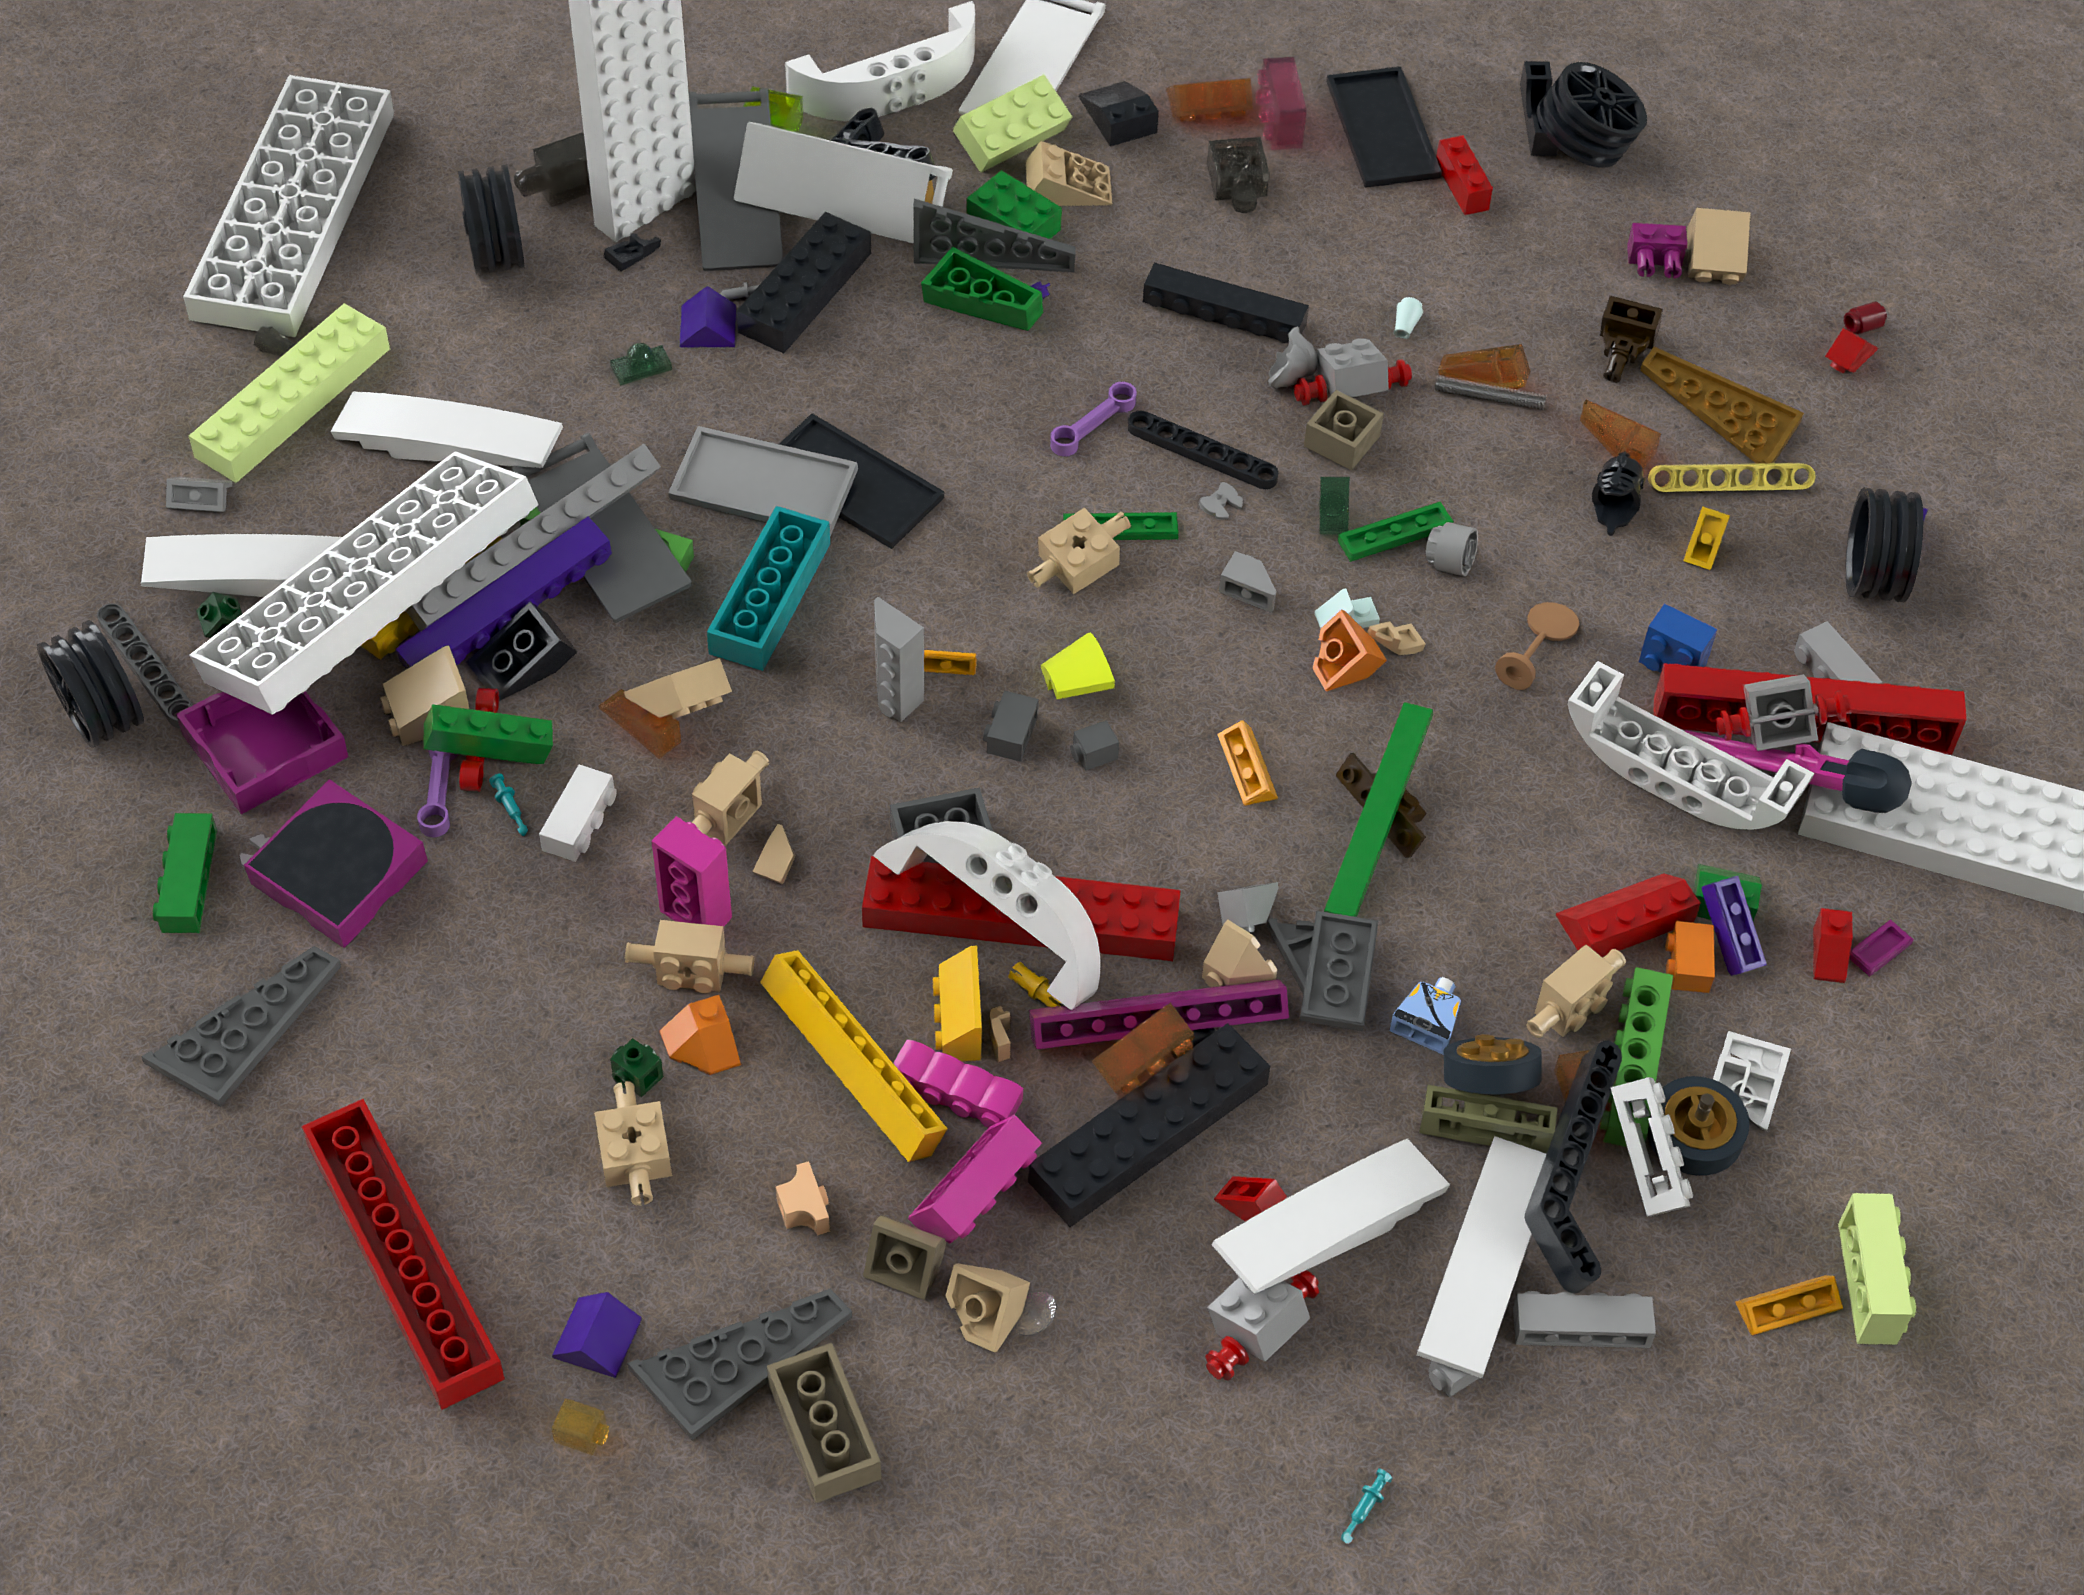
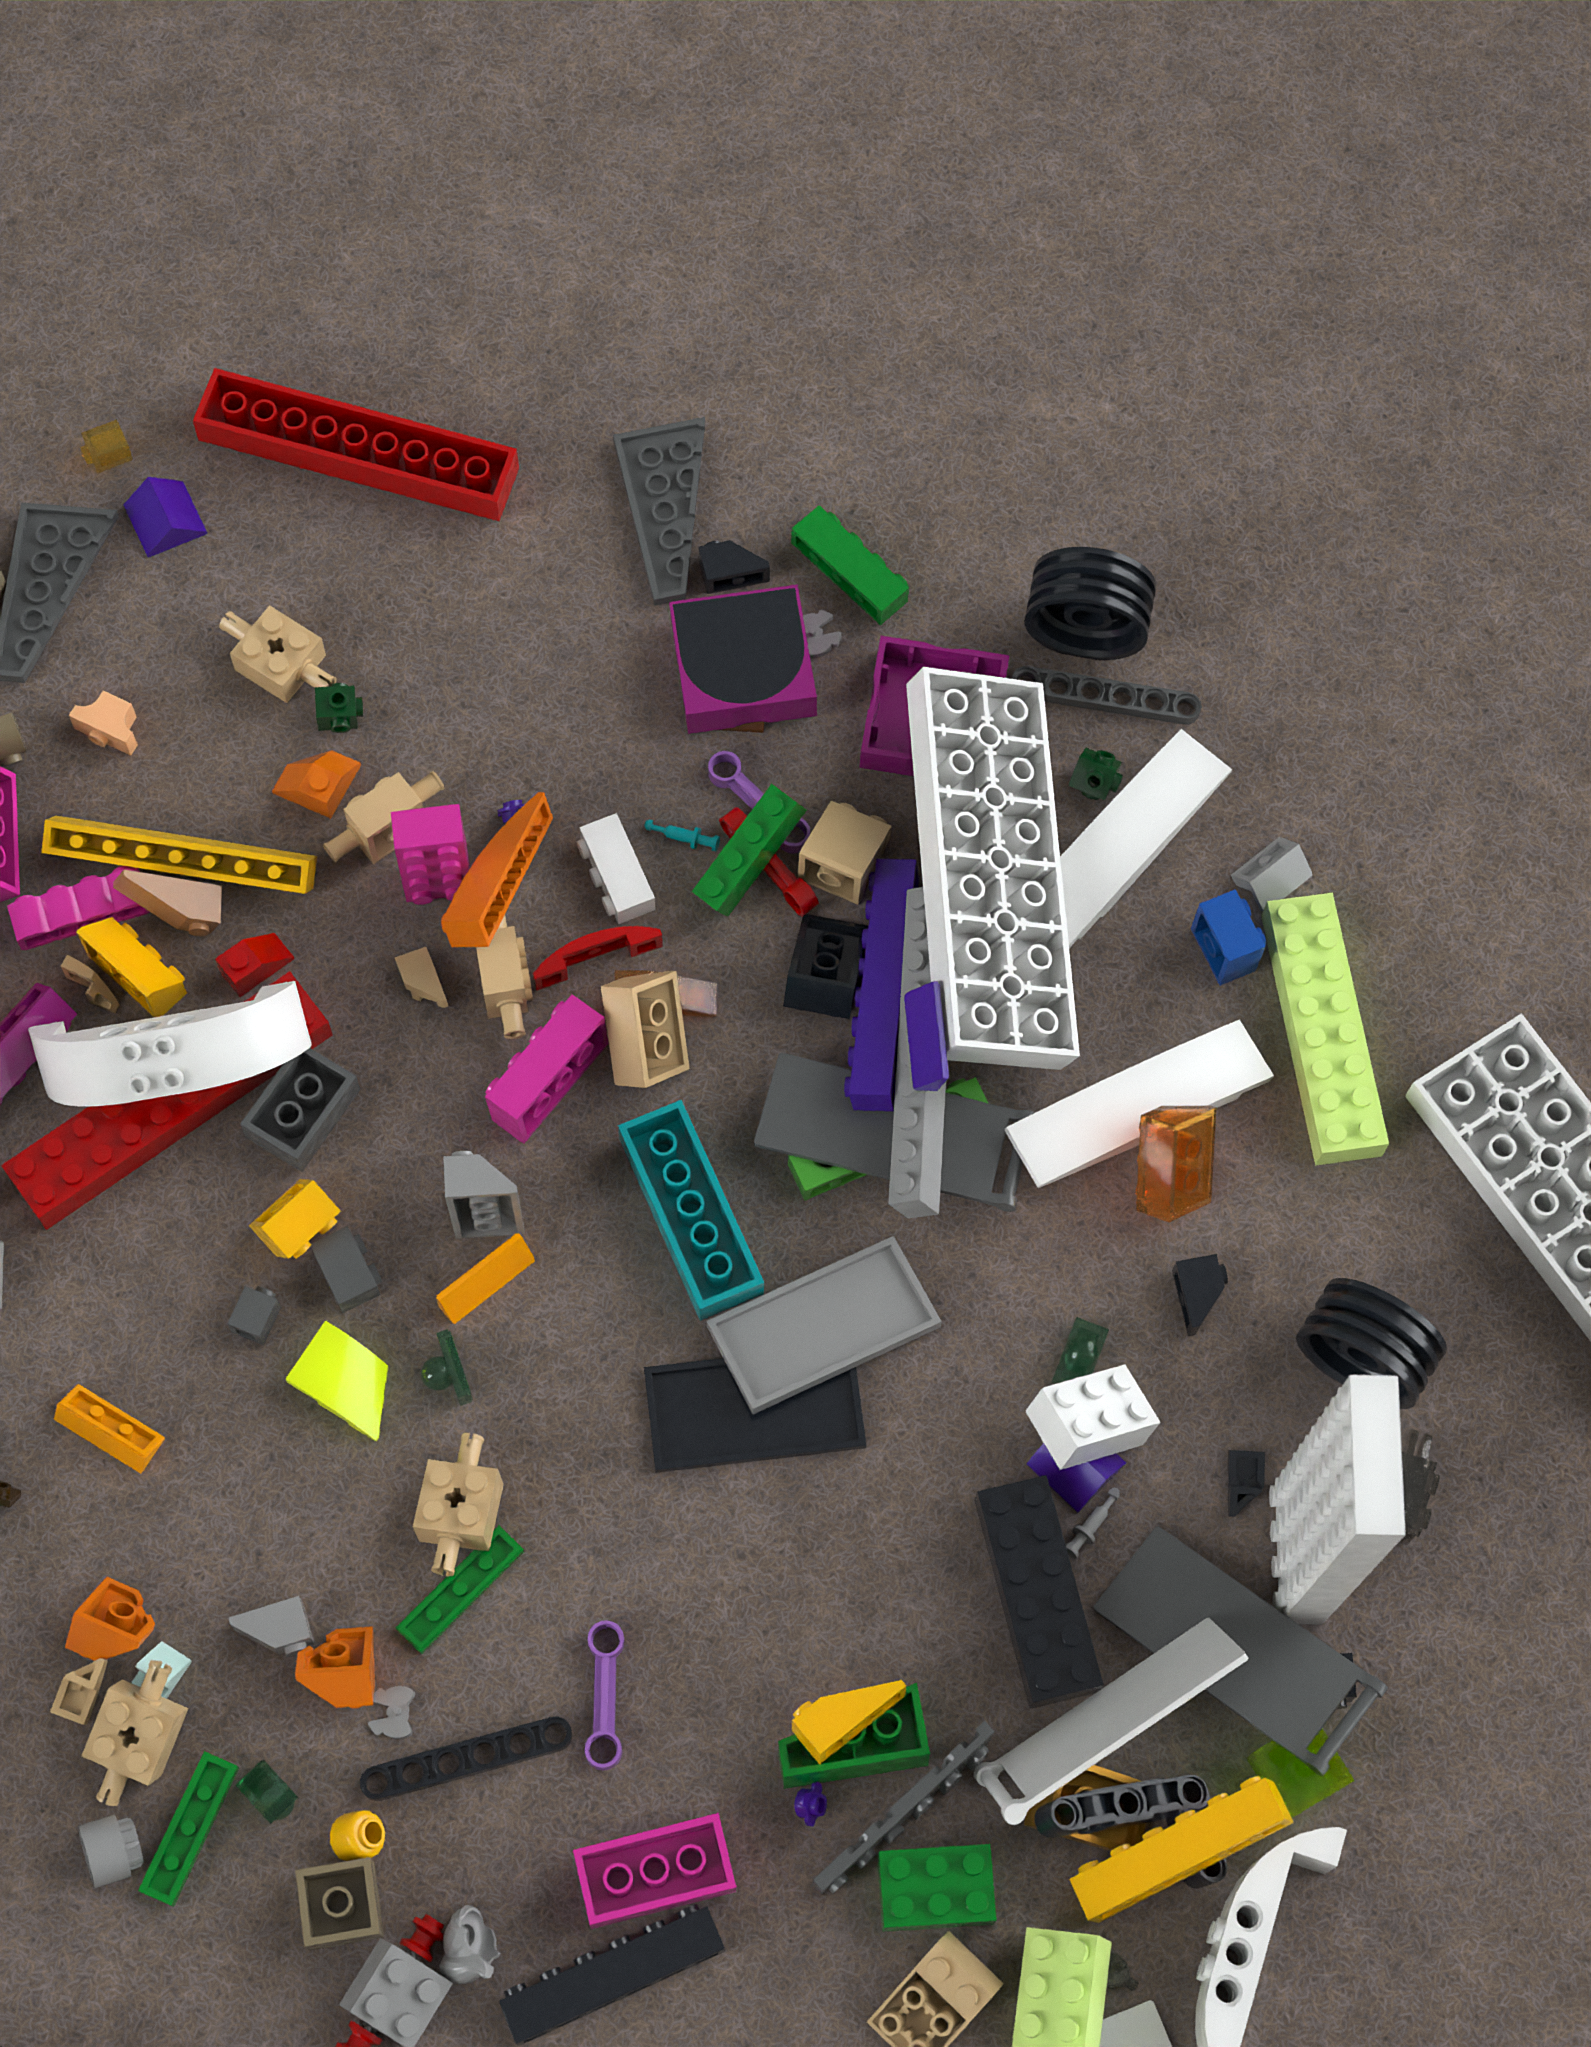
camera: 135 degrees right, 15 degrees up
(265, 940) = (730, 566): none -> black slope
(272, 341) = (1406, 1068): clear smoke cone -> none
(278, 465) = (1228, 936): none -> blue brick
(472, 380) = (1175, 1160): none -> clear orange slope
(530, 511) = (926, 1037): none -> dark purple slope
(538, 336) = (1198, 1287): none -> black slope
(599, 903) = (509, 809): none -> dark purple plate
(645, 779) = (636, 938): none -> red slope
(678, 311) = (1092, 1416): none -> white brick
(709, 810) = (495, 876): none -> orange slope
(764, 721) = (546, 1068): none -> dark pink brick
(869, 114) = (1180, 1849): none -> yellow brick
(876, 951) = (253, 961): none -> red slope
(884, 1019) = (177, 901): none -> slope
(981, 284) = (841, 1716): none -> yellow slope
(1008, 627) = (441, 1371): none -> clear green tile
(1016, 762) = (296, 1219): none -> yellow brick
(1154, 320) = (654, 1871): none -> dark pink brick
(1227, 531) = (340, 1668): none -> orange slope
(1302, 452) = (357, 1835): none -> yellow head
(1385, 584) = (138, 1753): none -> tan brick

